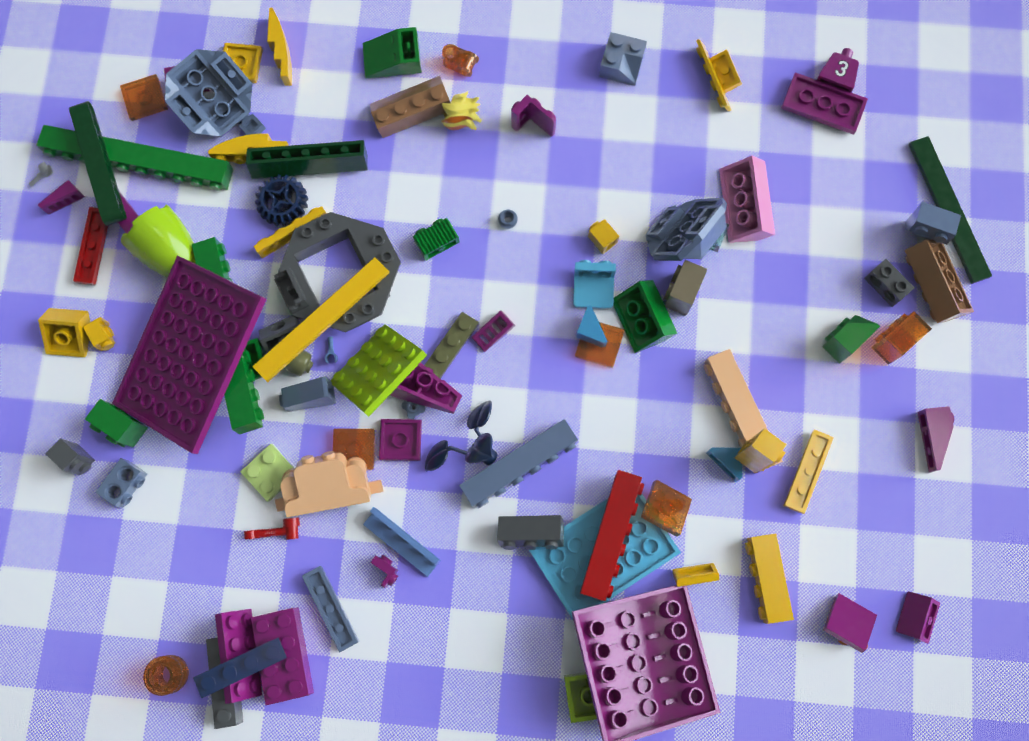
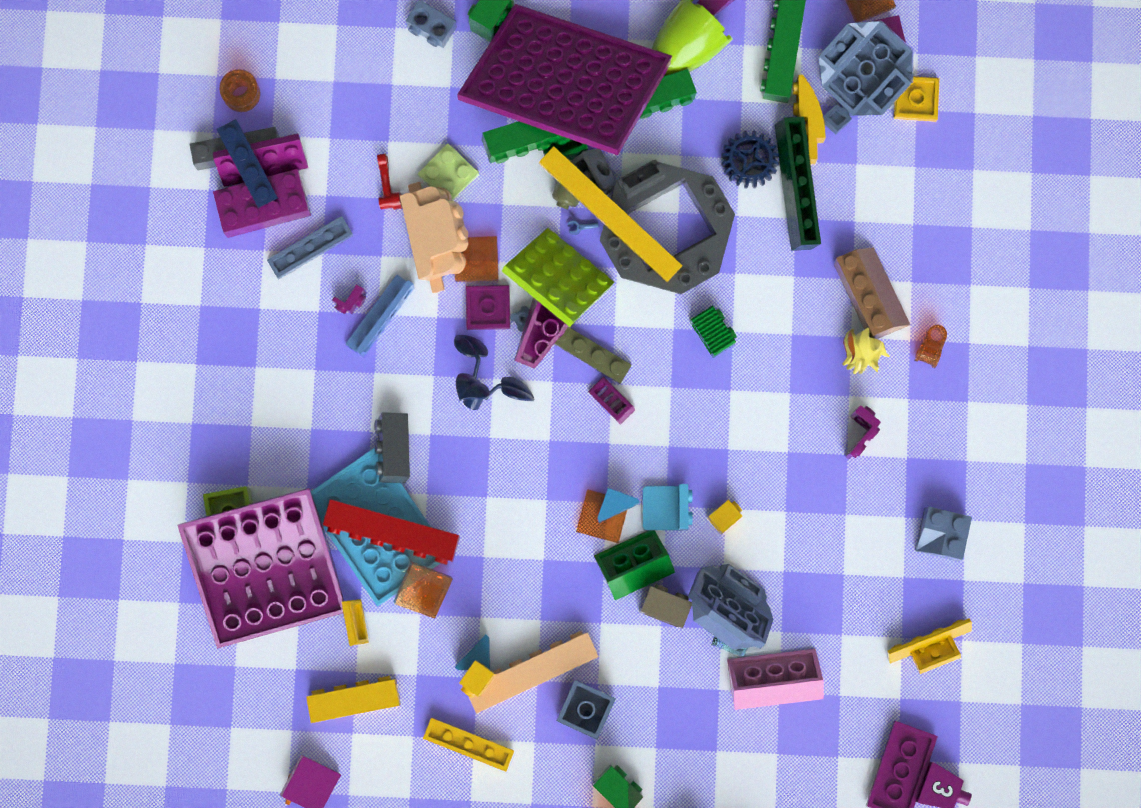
camera: 80 degrees right, 5 degrees up
(279, 45) = (944, 138): yellow slope -> none
(283, 235) = (710, 168): yellow plate -> none
(308, 395) = (530, 206): sand blue slope -> none
(393, 54) = (933, 269): green slope -> none
(507, 213) = (741, 403): sand blue plate -> none
(519, 463) = (466, 434): sand blue brick -> none
(777, 362) = (586, 709): none -> sand blue slope

